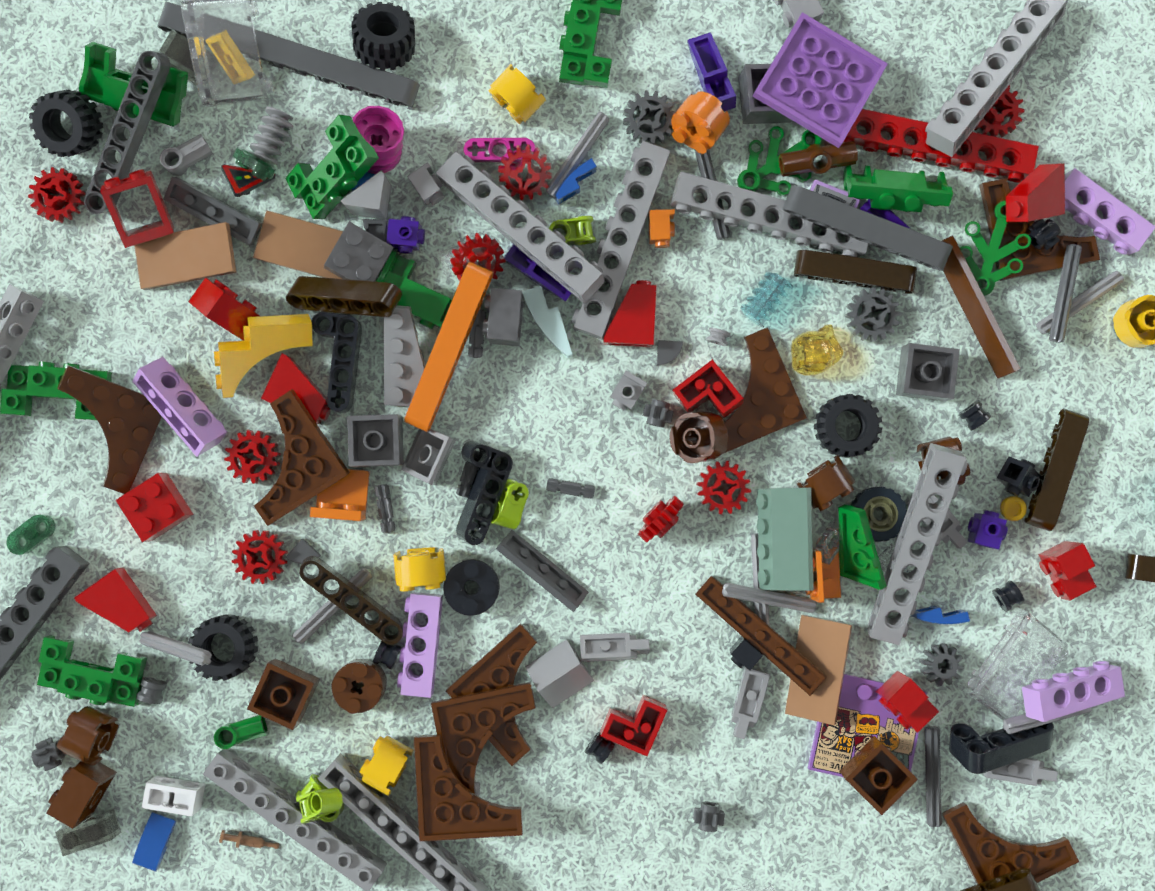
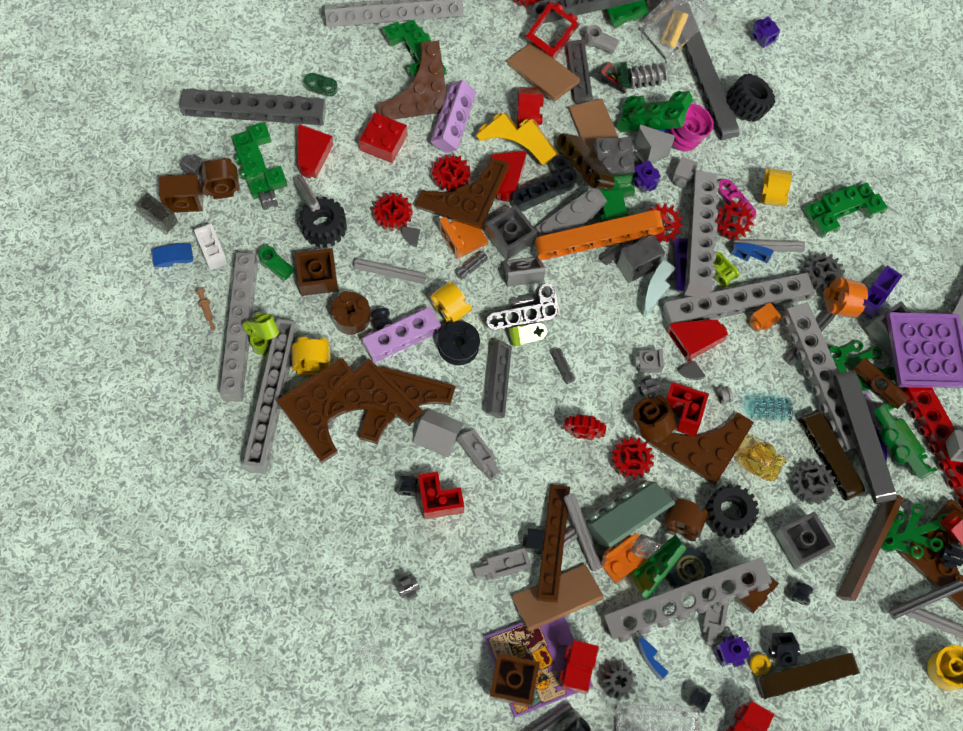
camera: 50 degrees right, 20 degrees down
(356, 611) = (403, 266): dark brown beam -> none

